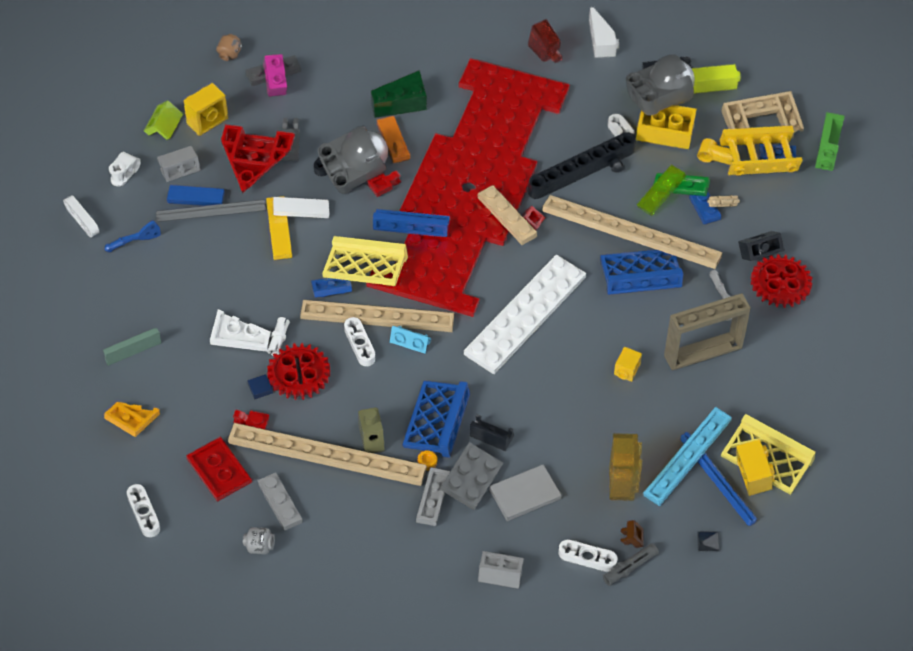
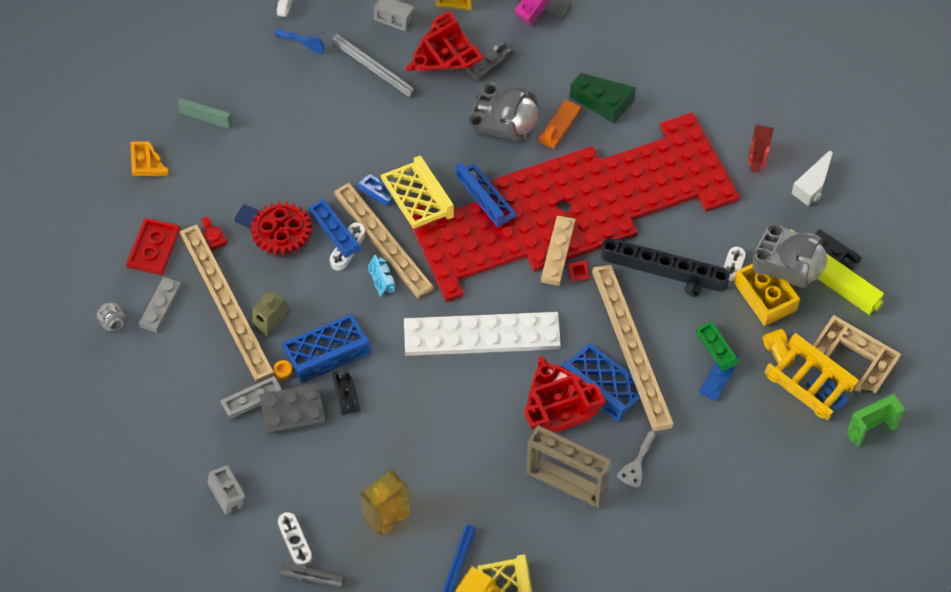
camera: 50 degrees right, 5 degrees up
(142, 518) = (76, 237): white beam -> none
(195, 195) = (377, 46): blue tile -> none
(234, 333) = (278, 166): white wing -> none
(278, 336) = (301, 192): white pin -> none
(279, 233) = (400, 117): yellow tile -> none
(300, 207) = (430, 116): white tile -> none
(337, 336) = (334, 228): none -> blue tile
(382, 184) = (506, 149): red plate -> none
(525, 492) = (313, 456): light grey tile -> none
(627, 364) = (498, 437): yellow brick -> none
(634, 534) = (341, 557): reddish brown tile -> none
(635, 301) = (560, 399): none -> red wedge
(661, 190) = (695, 336): clear neon green tile -> none
(687, 456) = (449, 542): medium azure tile -> none
(723, 201) = (731, 388): tan axle -> none
(761, 245) = (711, 447): black brick -> none
(781, 281) = (693, 488): red gear -> none

